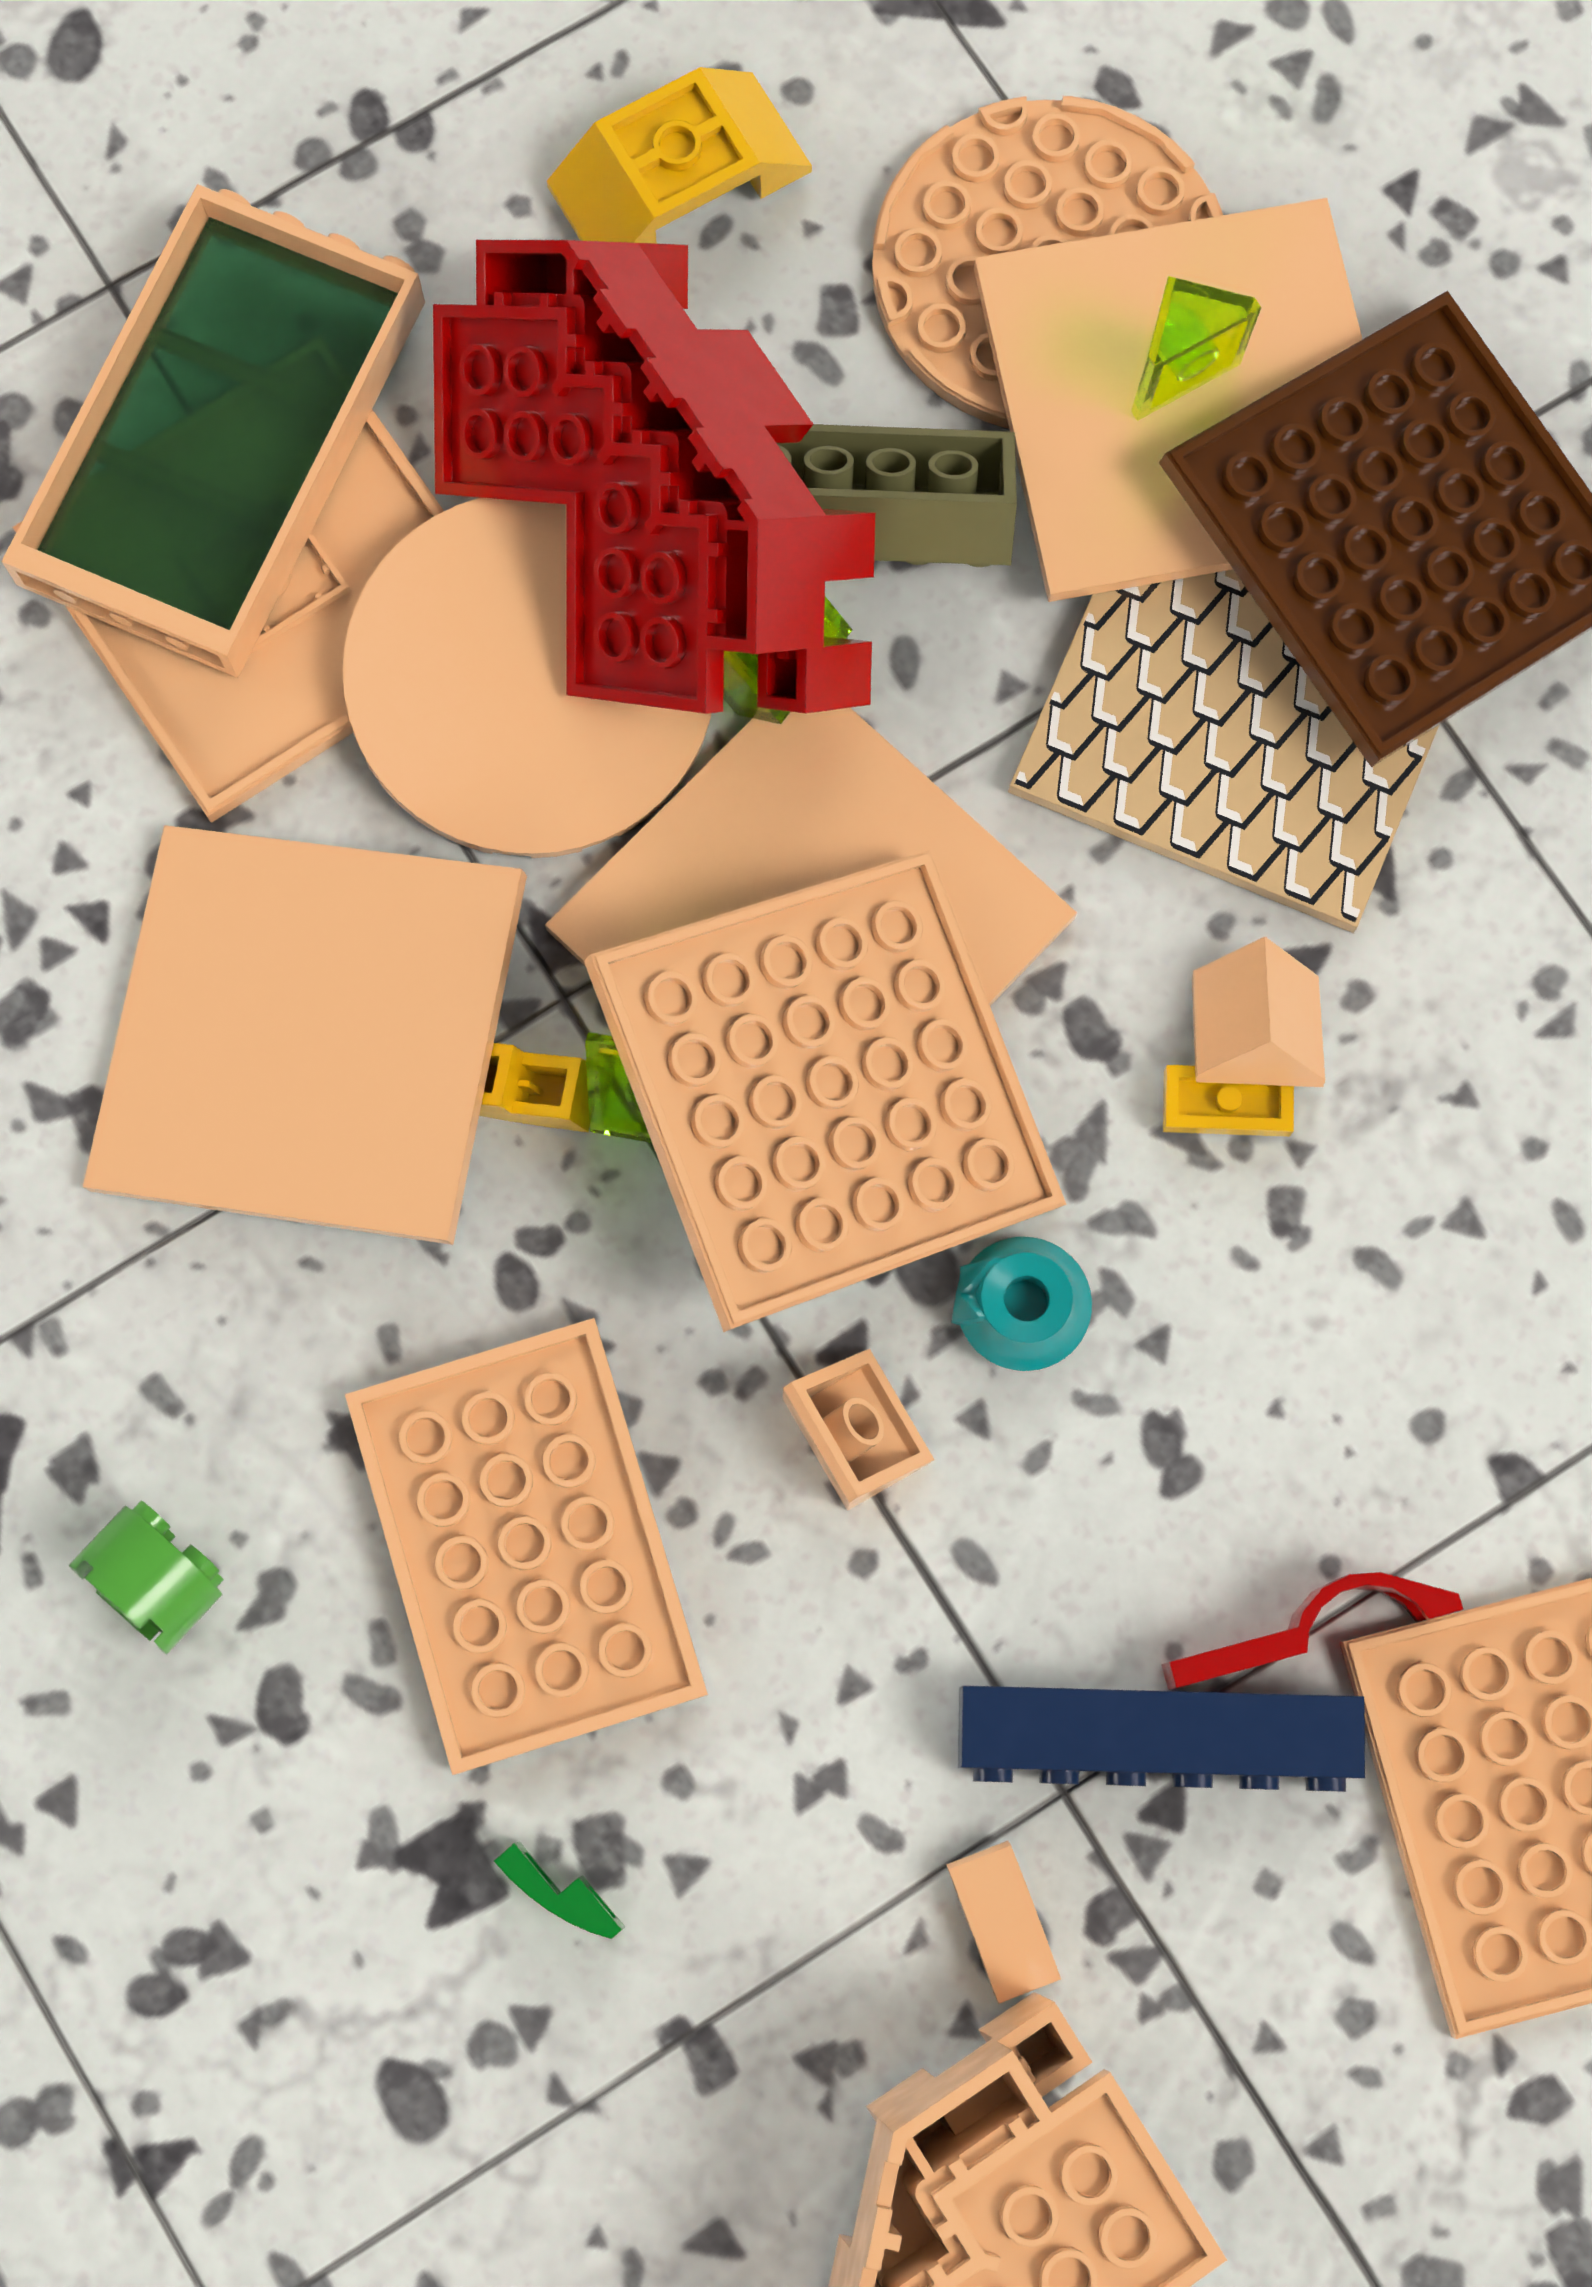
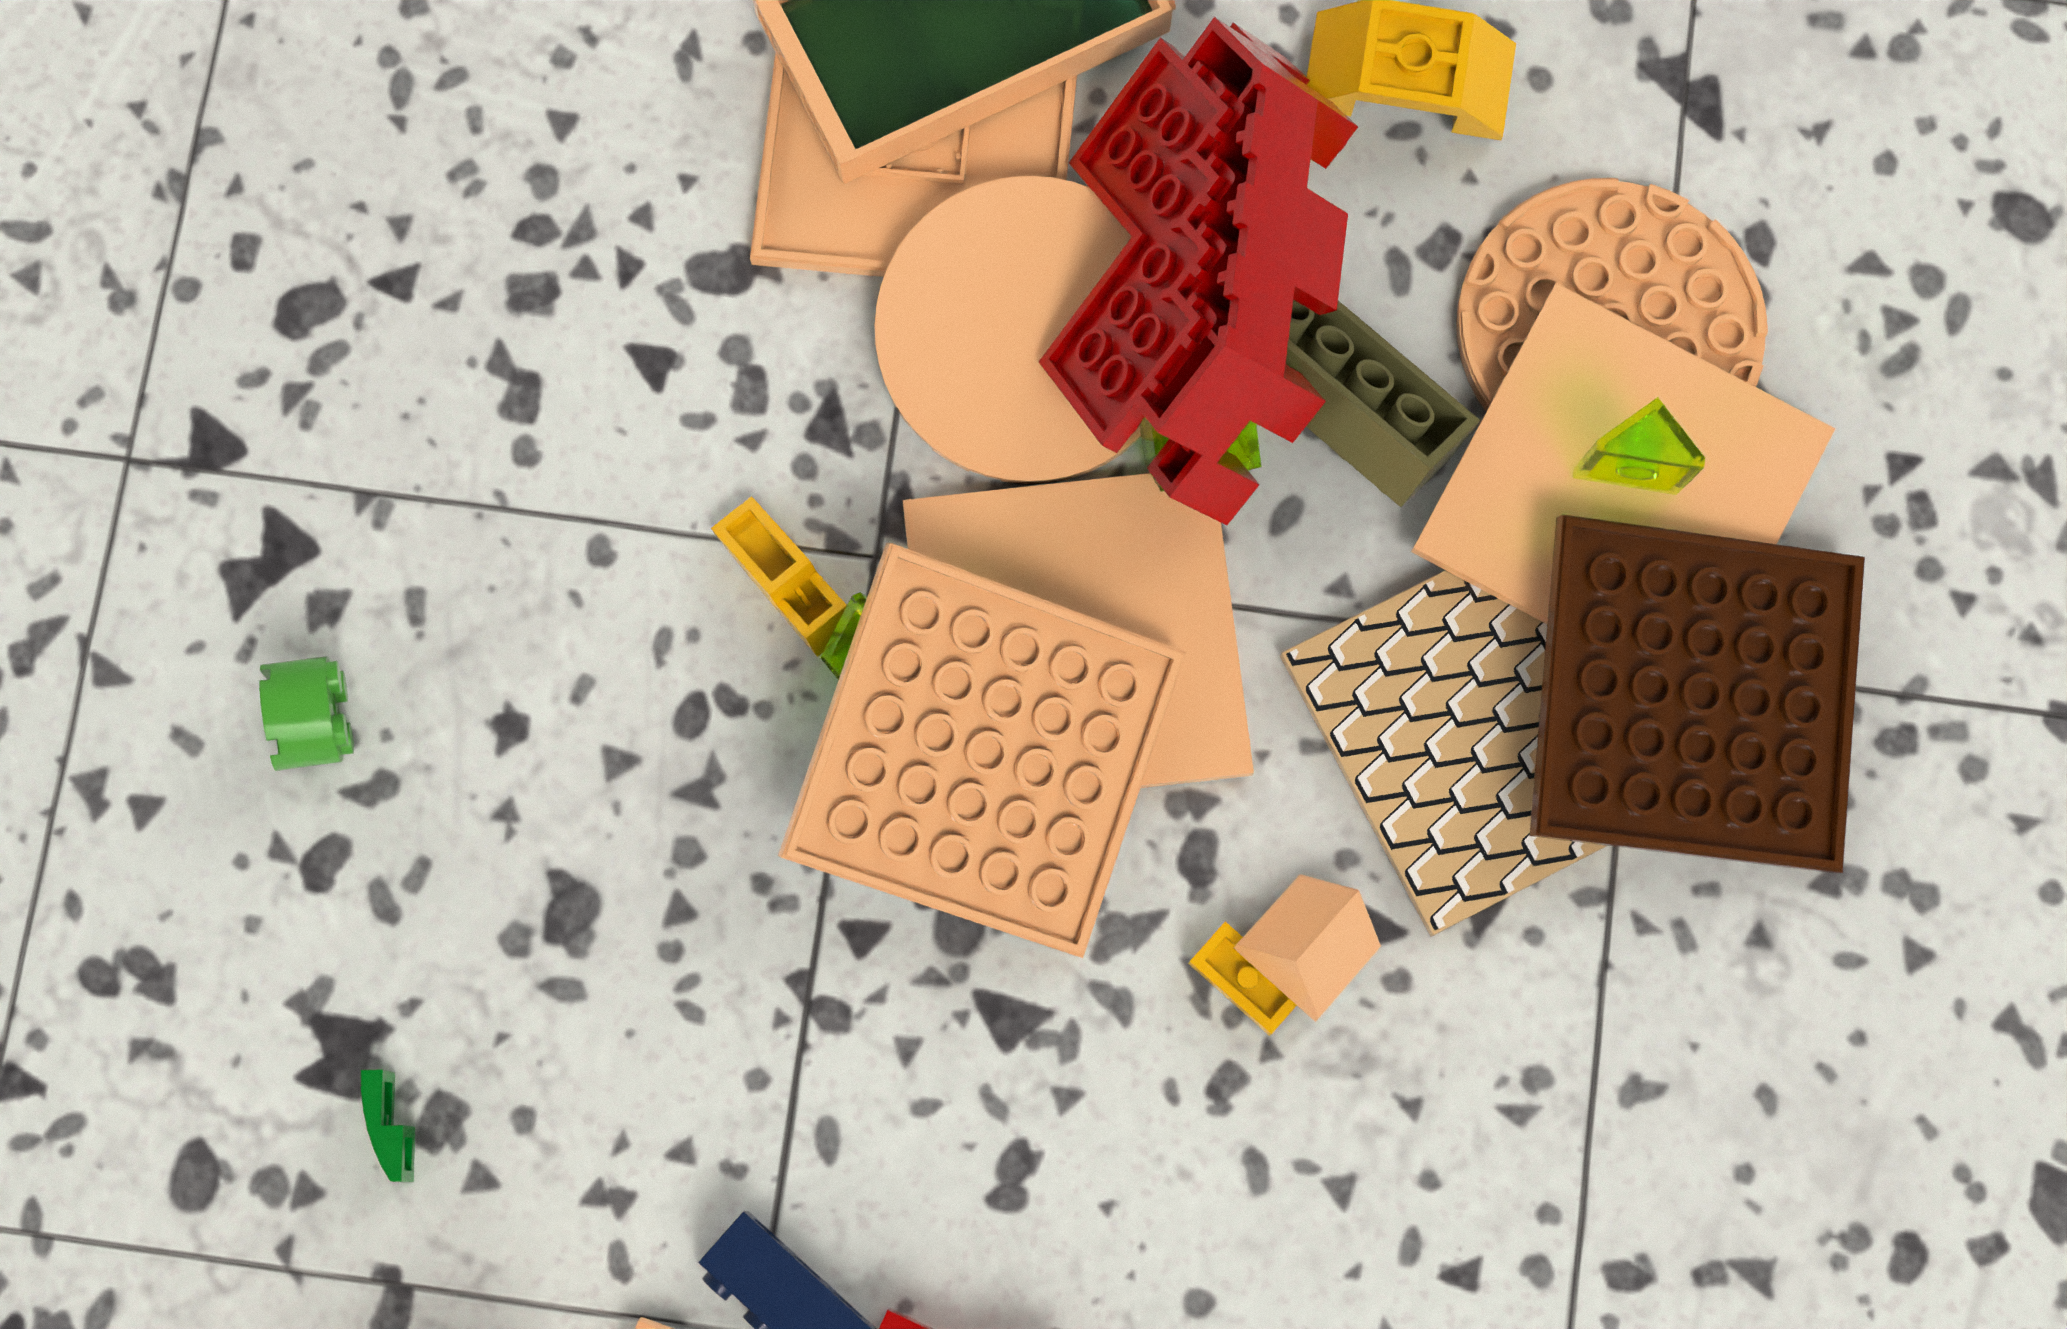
camera: 40 degrees right, 0 degrees up
(307, 1033) = (693, 449): light nougat tile -> none
(525, 1546) = (553, 889): light nougat plate -> none
(856, 1427) = (822, 988): light nougat slope -> none
(1023, 1303) = (998, 999): teal piece -> none

